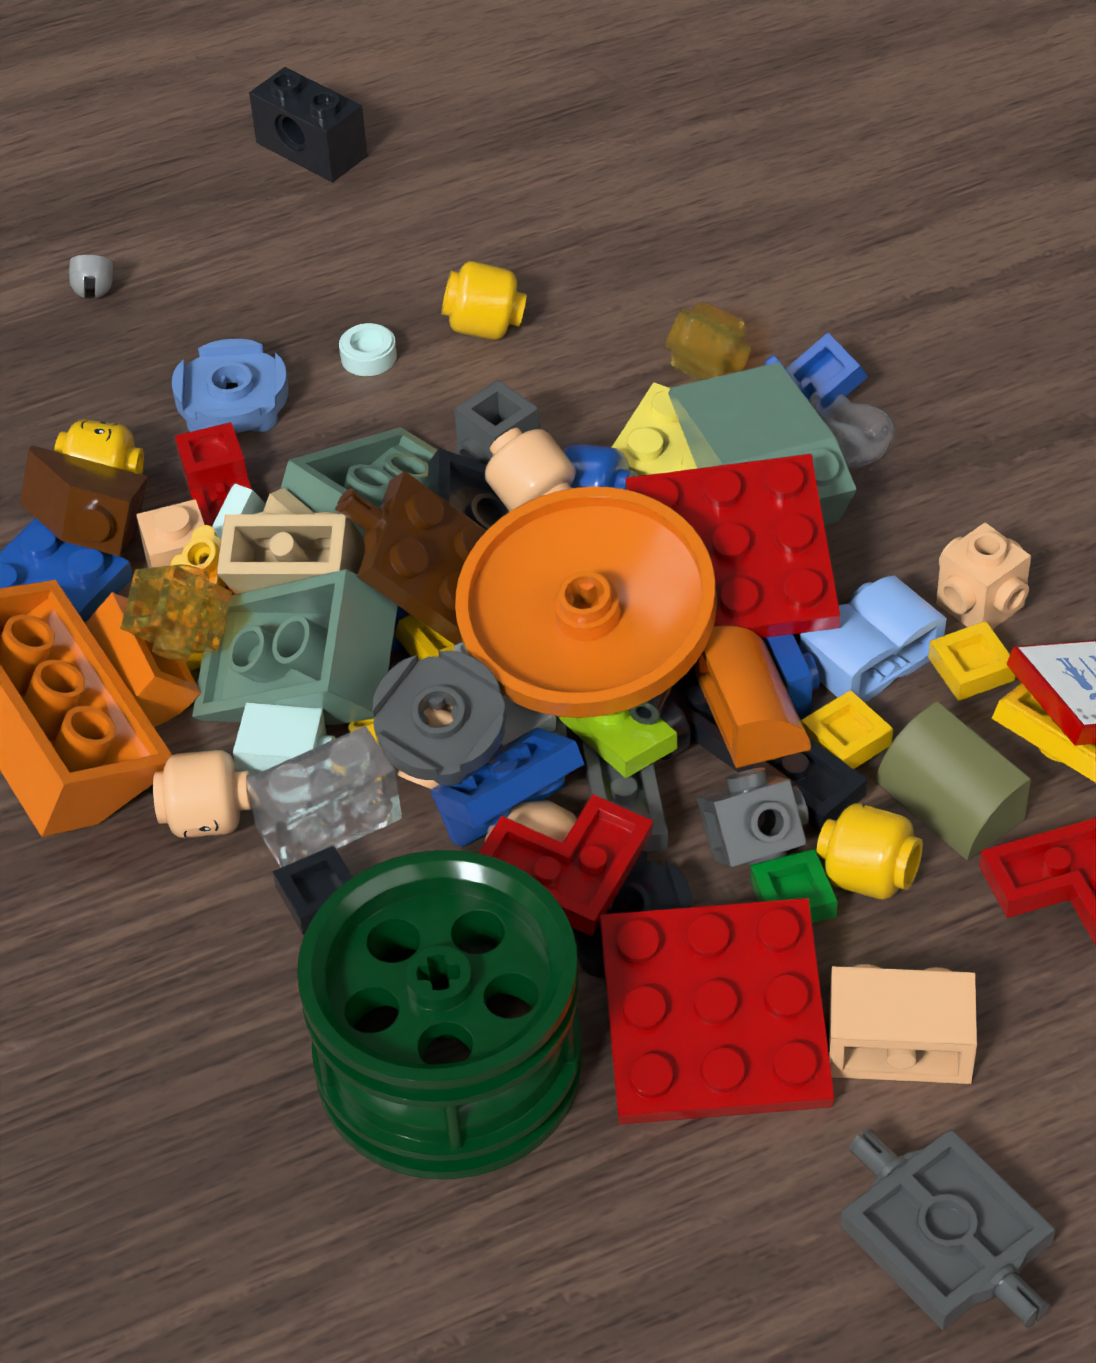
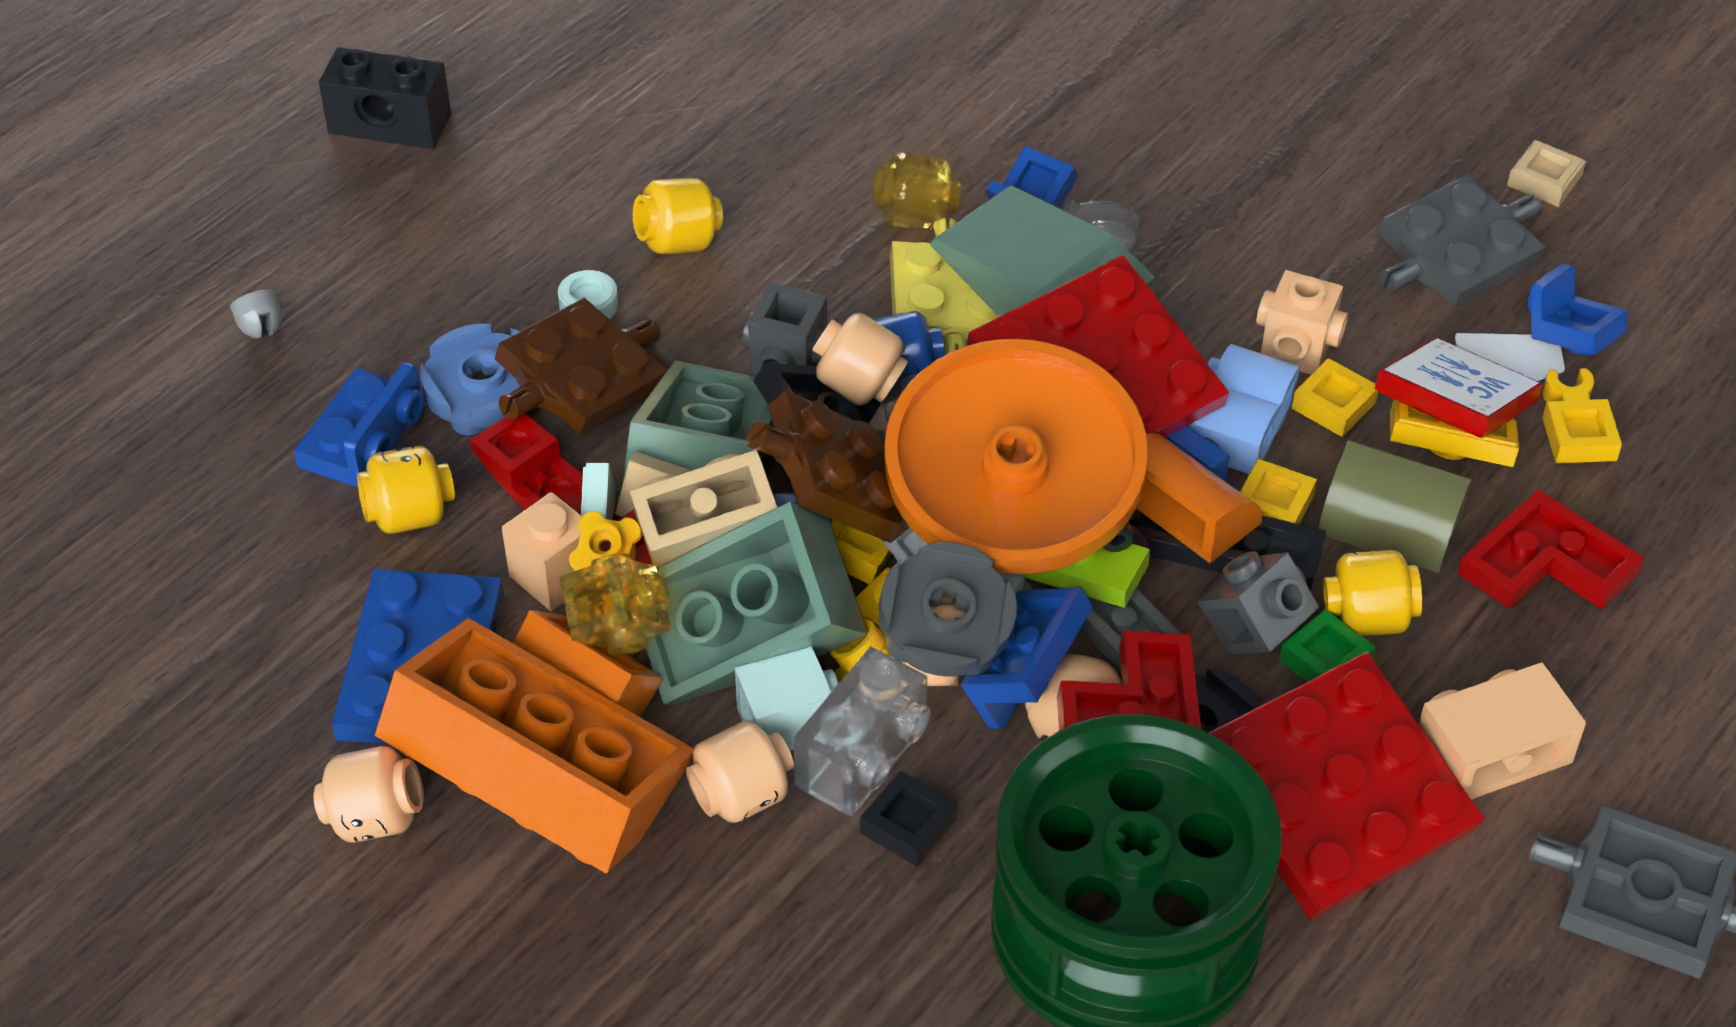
camera: 30 degrees left, 0 degrees up
(83, 499) = (422, 533): reddish brown slope -> none
(113, 392) = (361, 421): none -> blue bracket
(307, 401) = (579, 366): none -> reddish brown plate

